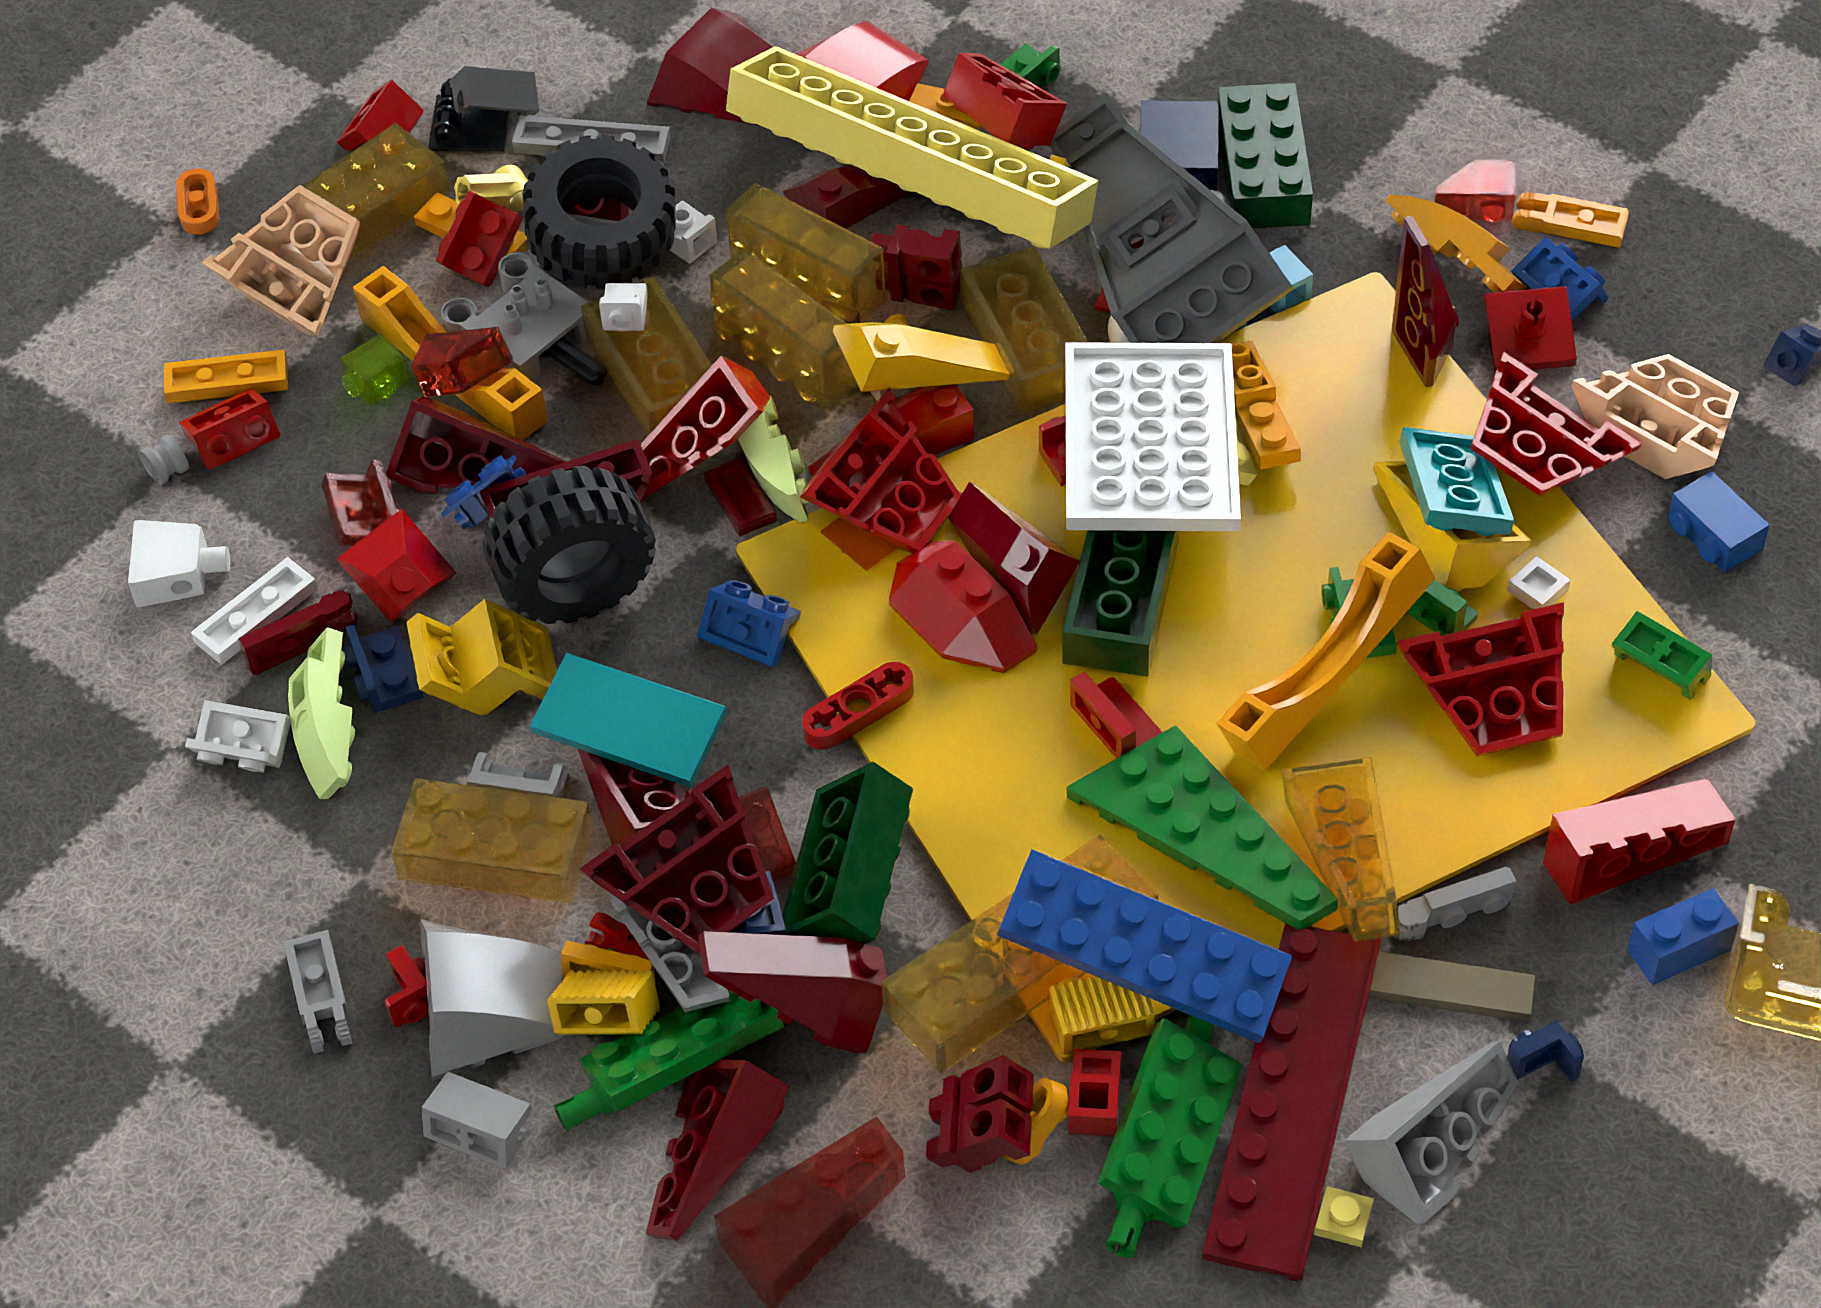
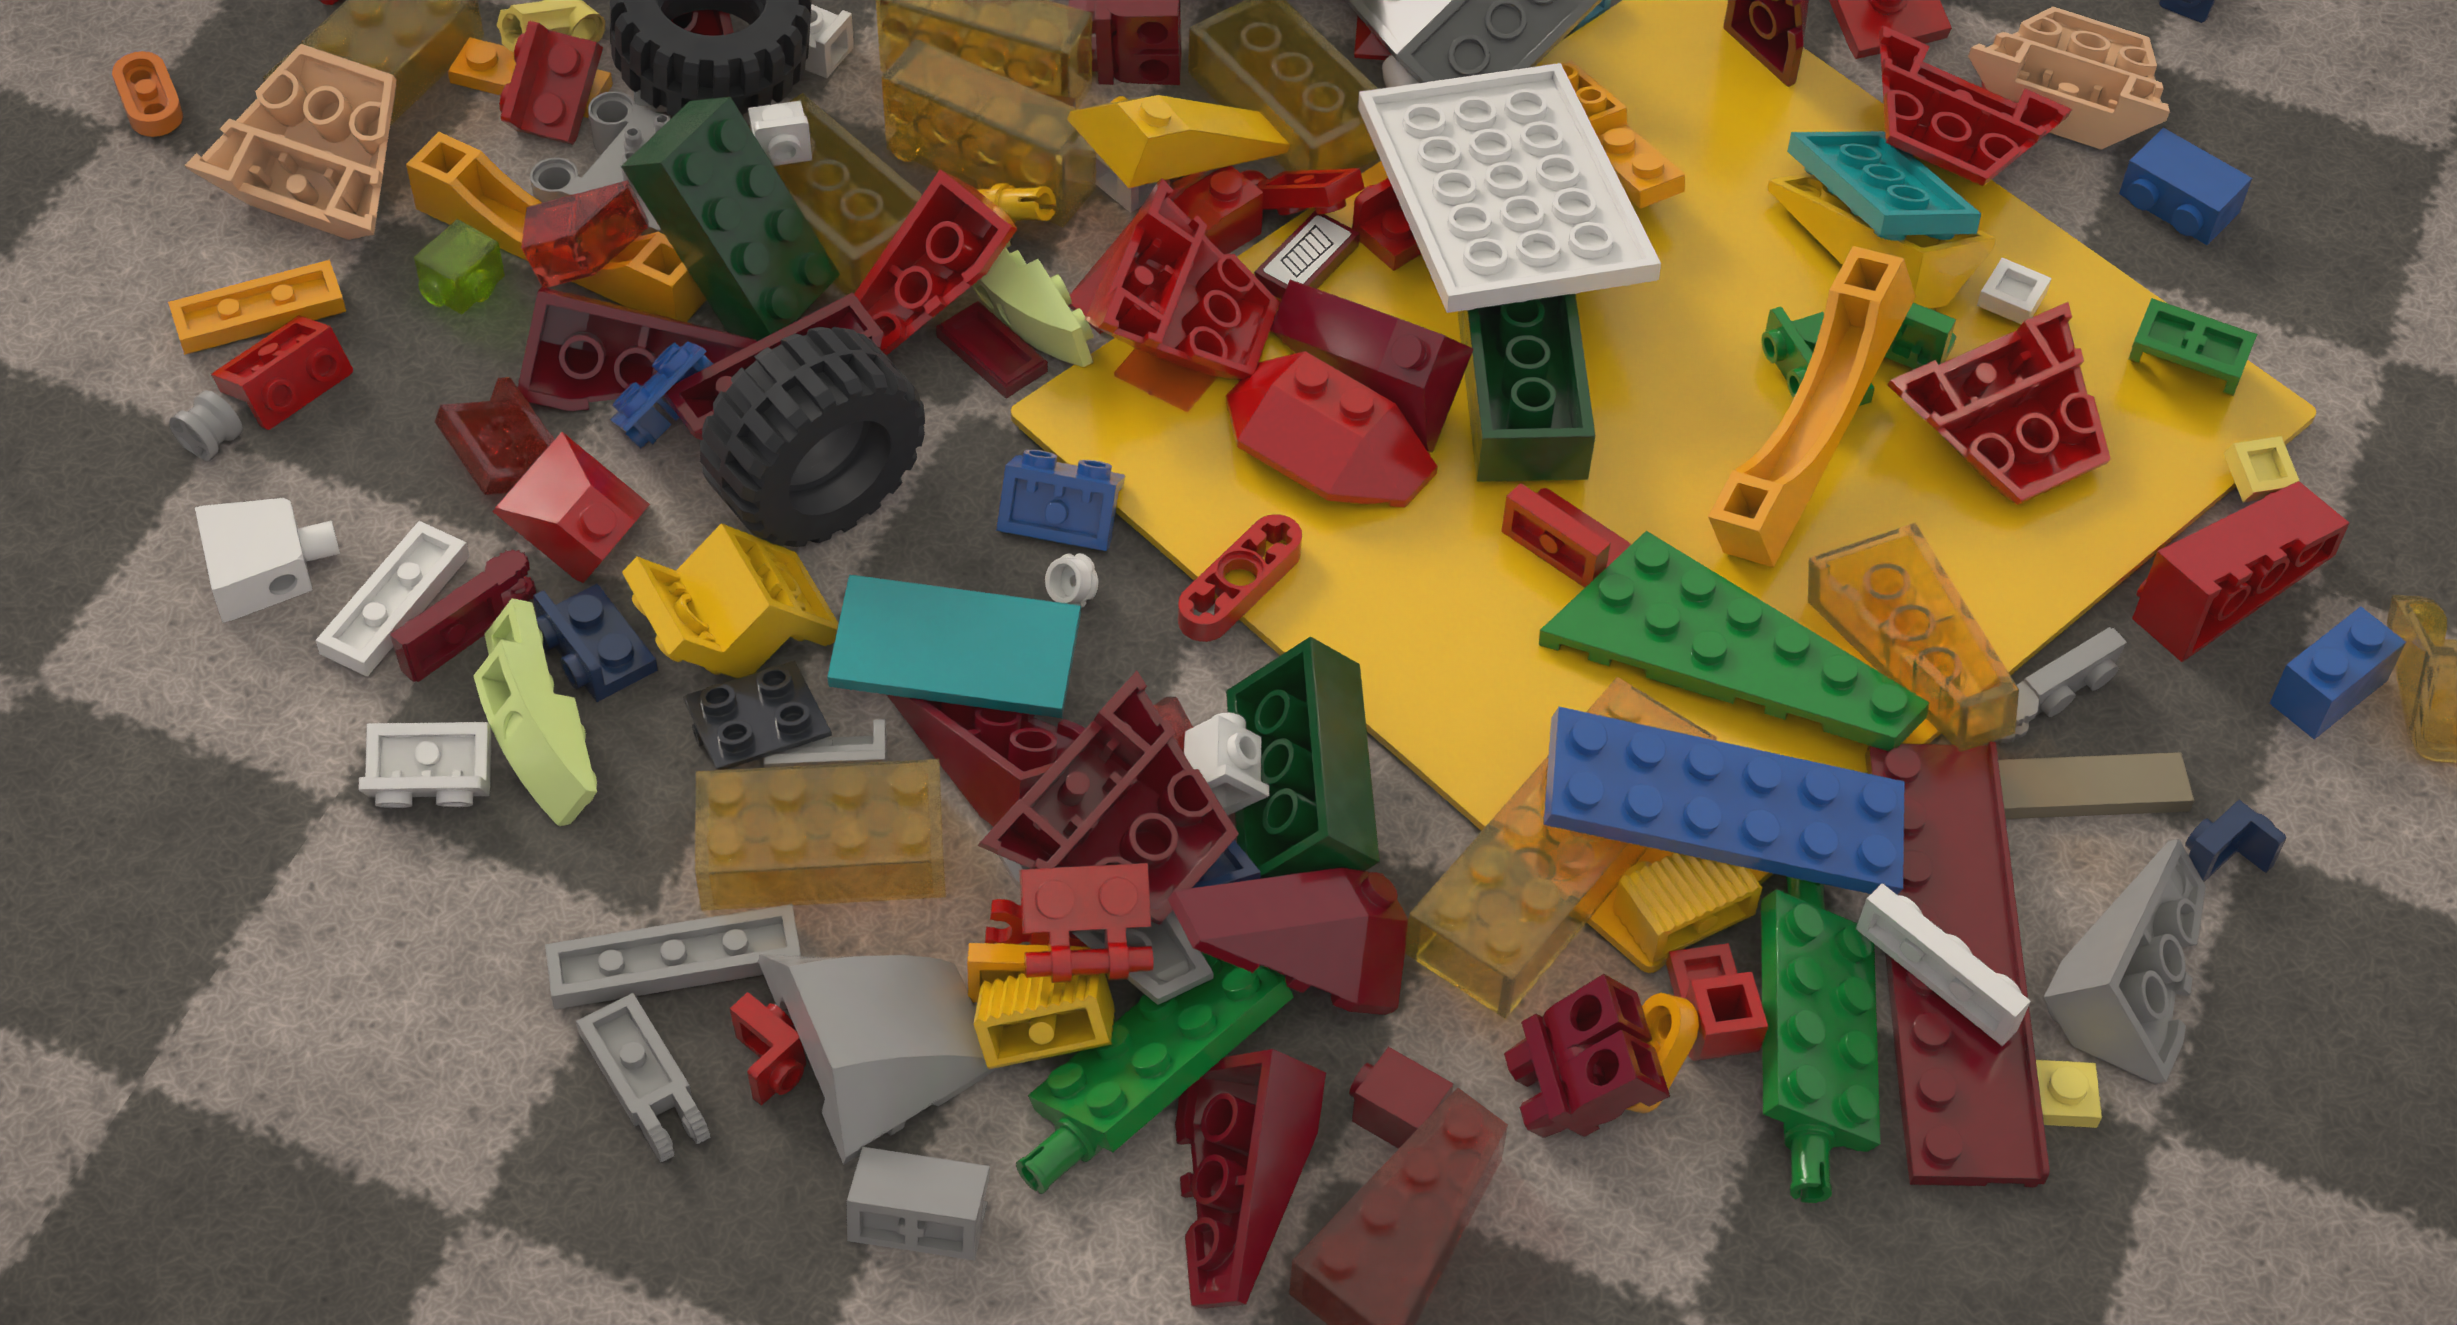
camera: 20 degrees left, 0 degrees up
(362, 908) = (668, 956): none -> light grey plate
(474, 745) = (756, 716): none -> black hinge
(563, 369) = (731, 218): none -> dark green brick
(641, 925) = (1086, 900): none -> red plate
(737, 685) = (1072, 579): none -> white plate
(785, 387) = (1022, 202): none -> yellow pin
(789, 844) = (1227, 760): none -> white brick
(836, 1111) = (1396, 1096): none -> dark red brick
(996, 463) = (1308, 254): none -> tile
(1006, 411) = (1305, 189): none -> red plate
(1271, 1098) = (1943, 964): none -> white plate
(1684, 761) = (2260, 467): none -> light yellow plate

